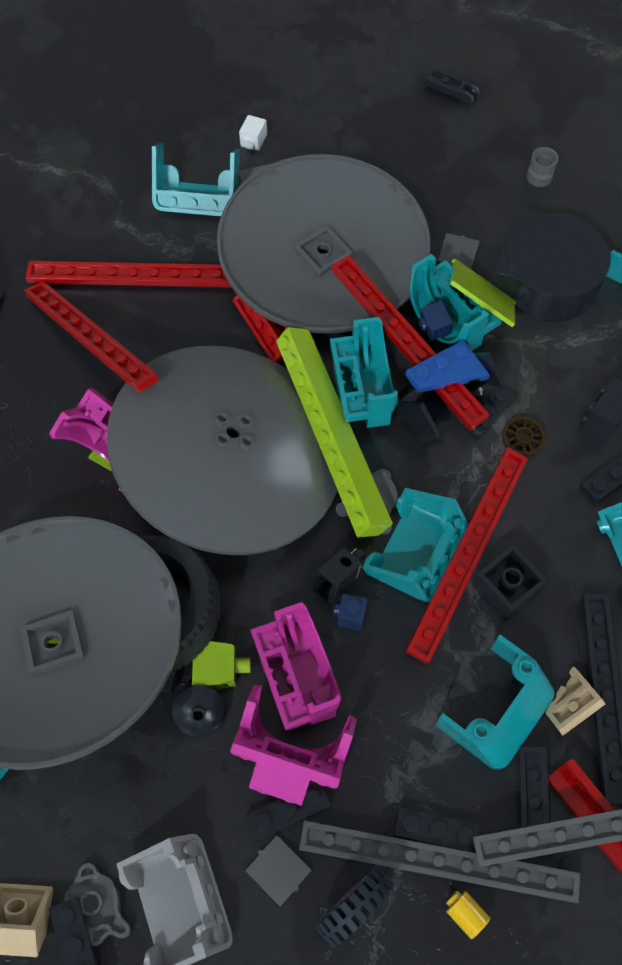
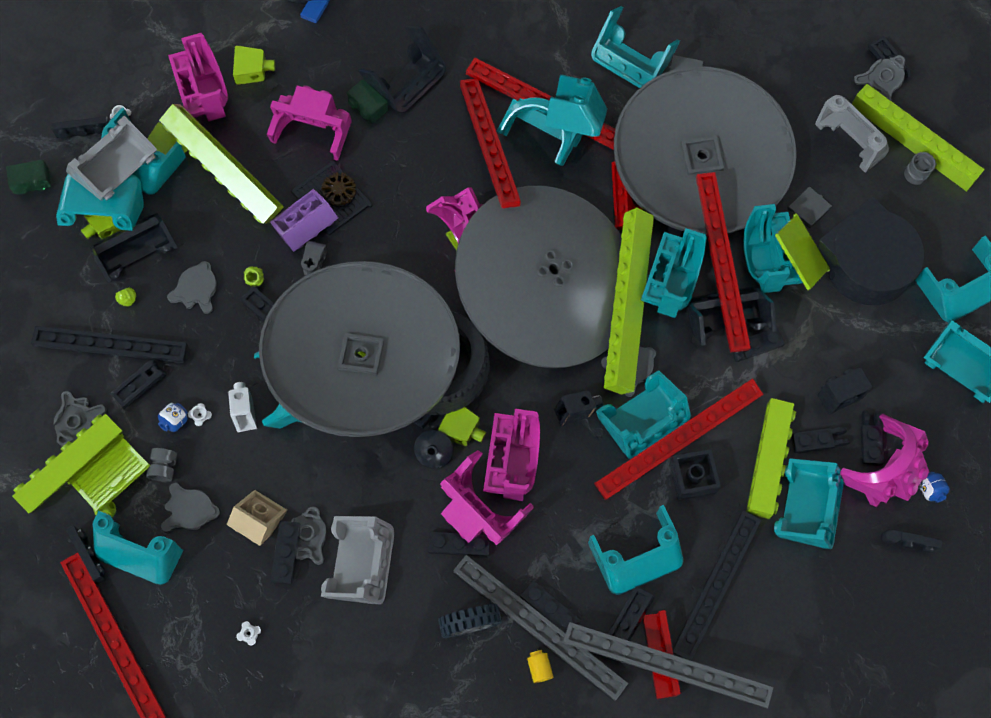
camera: 25 degrees right, 5 degrees up
(157, 289) = (526, 111): none -> teal piece
(166, 257) = (577, 107): none -> teal windscreen
(253, 133) = (701, 27): white brick -> none
(278, 870) = (433, 577): dark grey piece -> none
(350, 612) = (571, 437): dark blue brick -> none
(435, 320) = (752, 256): dark blue brick -> none
(448, 367) = (738, 297): blue wing -> none
(456, 103) = (884, 76): none -> dark grey tile
(460, 153) = (841, 113): none -> light grey windscreen
(520, 140) = (917, 137): none -> lime brick
(524, 435) = (771, 376): dark brown wheel -> none
(573, 703) = (690, 577): tan wing -> none
(576, 523) = (770, 458): none -> lime brick

